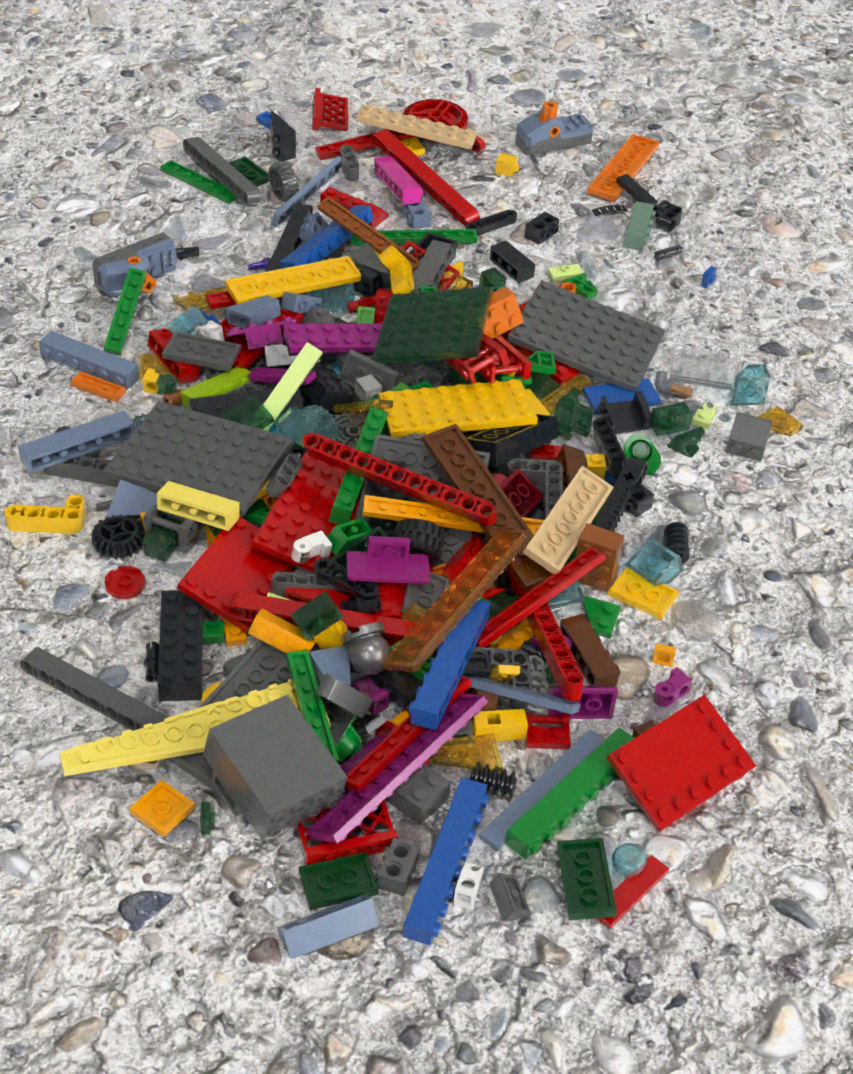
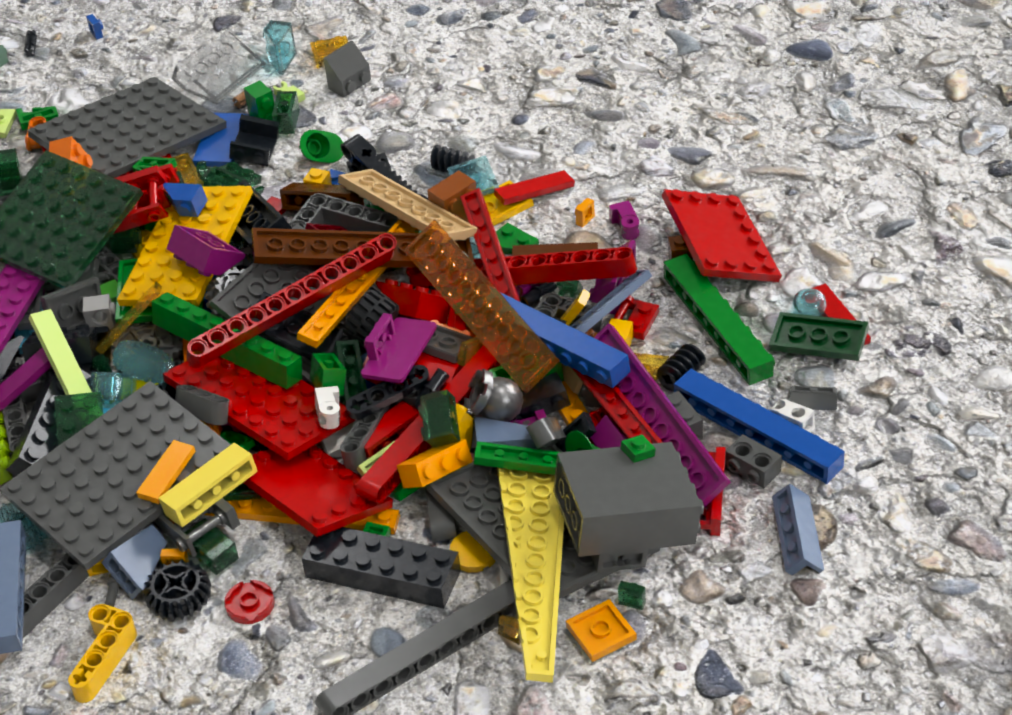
camera: 60 degrees left, 0 degrees up
(152, 661) = (388, 599): black pin -> none
(200, 476) = (166, 471): none -> light orange tile
(319, 750) = (638, 448): none -> green plate
(337, 880) = (746, 514): dark green tile -> none
(436, 411) = (203, 251): none -> magenta slope
(494, 385) = (186, 198): none -> blue slope
(496, 831) = (698, 335): sand blue tile -> none
(609, 446) = (299, 162): black beam -> none
(668, 393) = (259, 100): none -> green brick
(676, 609) = (534, 187): none -> red tile
(687, 442) = (318, 114): clear green slope -> none

